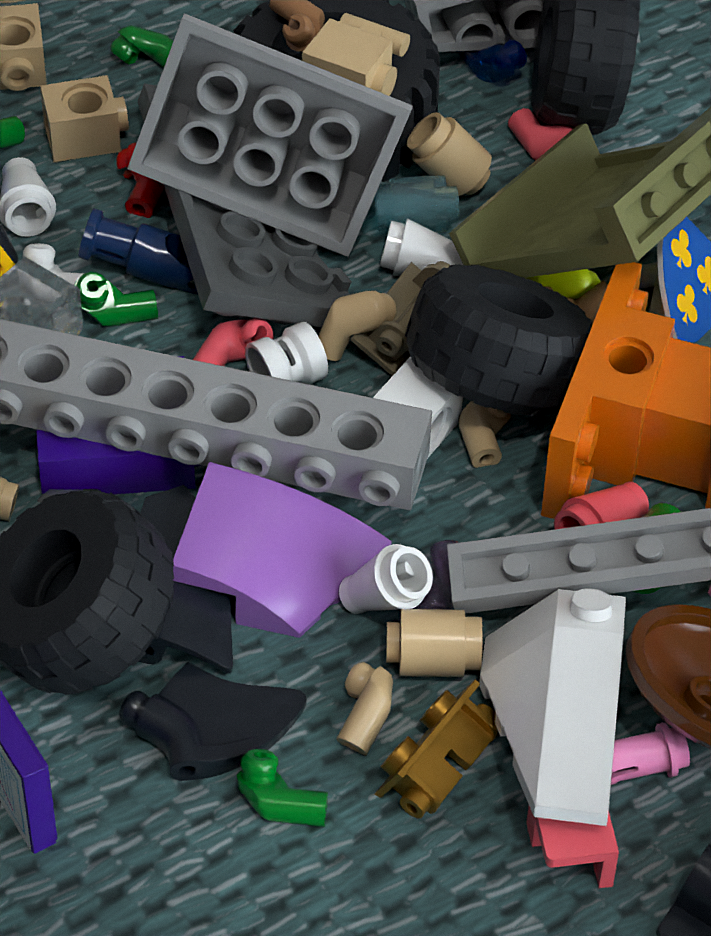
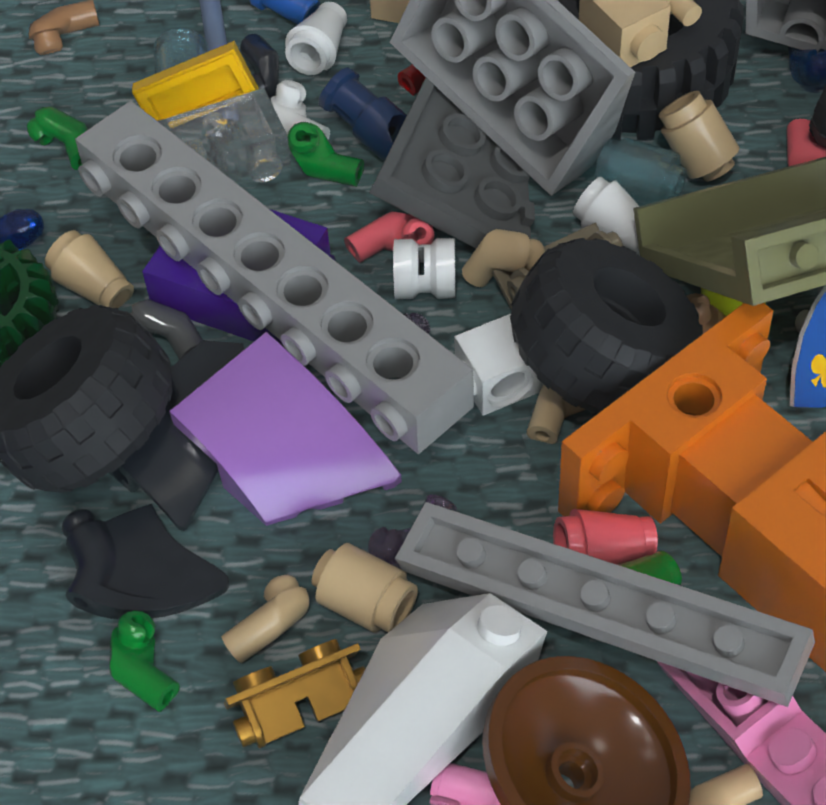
camera: 35 degrees right, 5 degrees up
(389, 581) = (368, 515): white cone -> none

